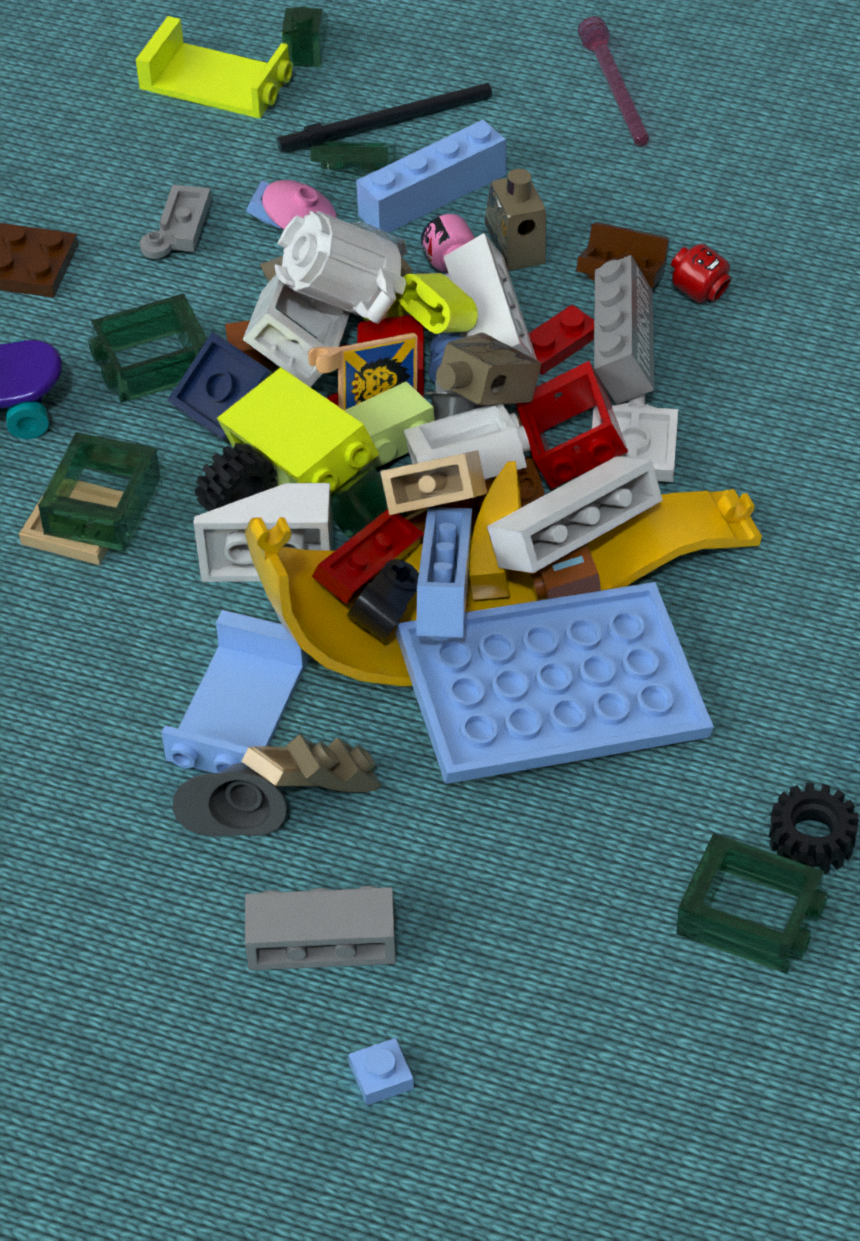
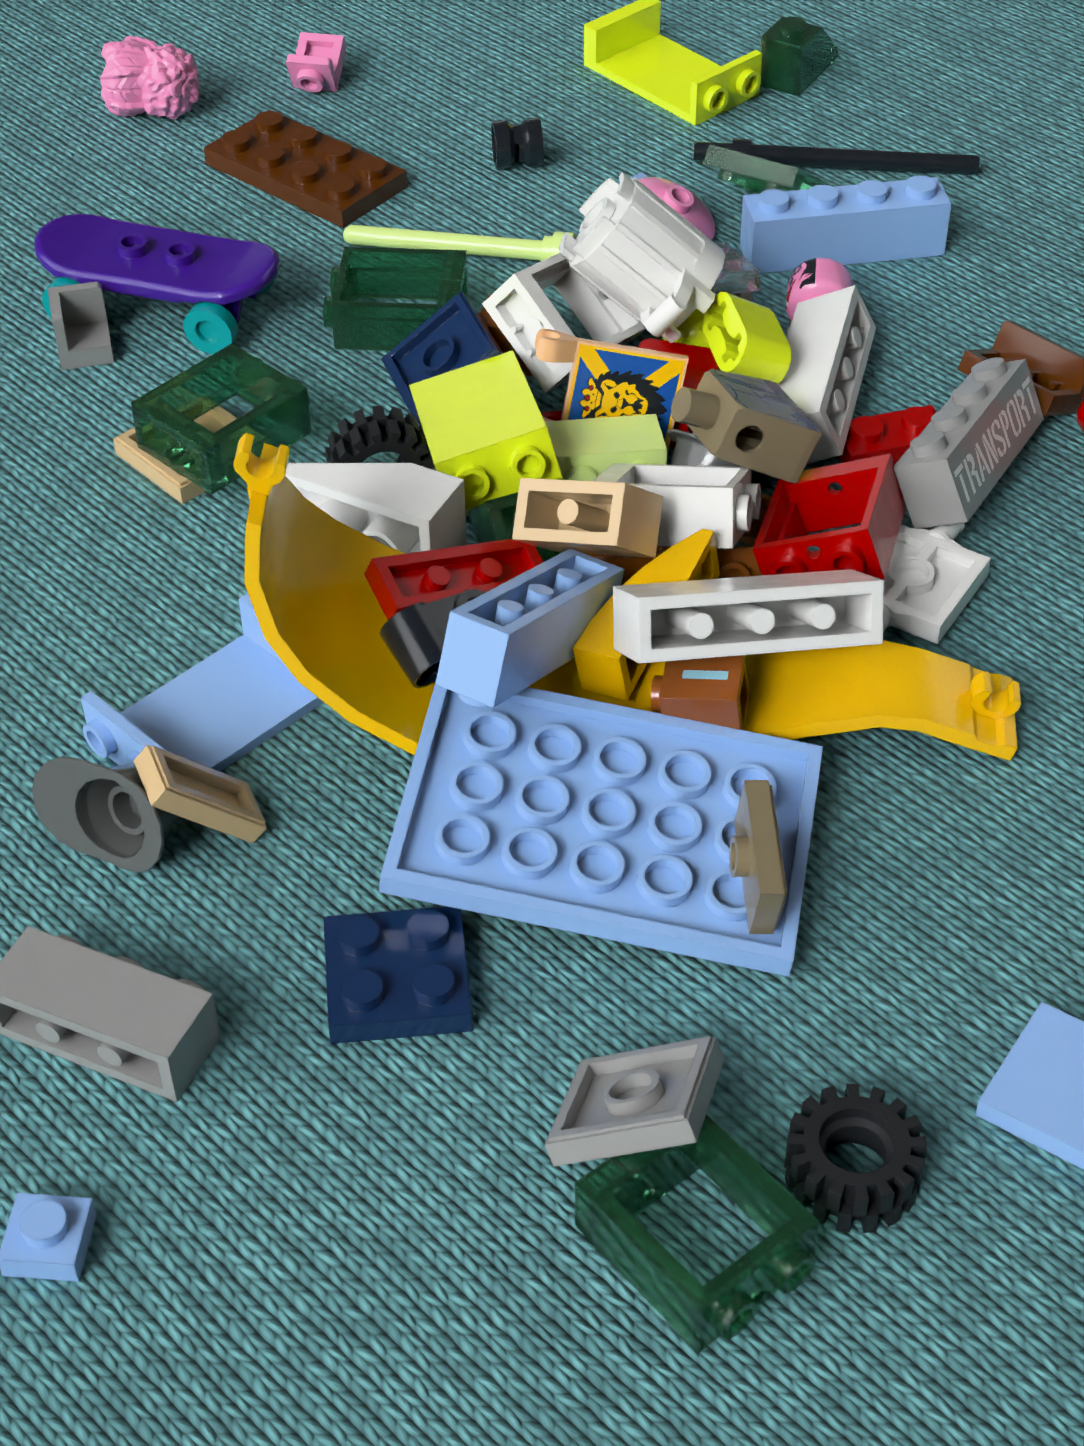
camera: 25 degrees right, 5 degrees down
(146, 182) = (517, 143): none -> black wheel
(179, 223) = (526, 191): light grey hinge -> none
(235, 267) = (474, 244): none -> yellowish green piece
(335, 765) = (265, 823): dark tan slope -> none
(478, 831) = (396, 974): none -> dark blue plate
(512, 205) = (920, 277): dark tan torso -> none
(666, 669) = (758, 858): none -> dark tan plate
(681, 846) = (636, 1101): none -> light grey tile

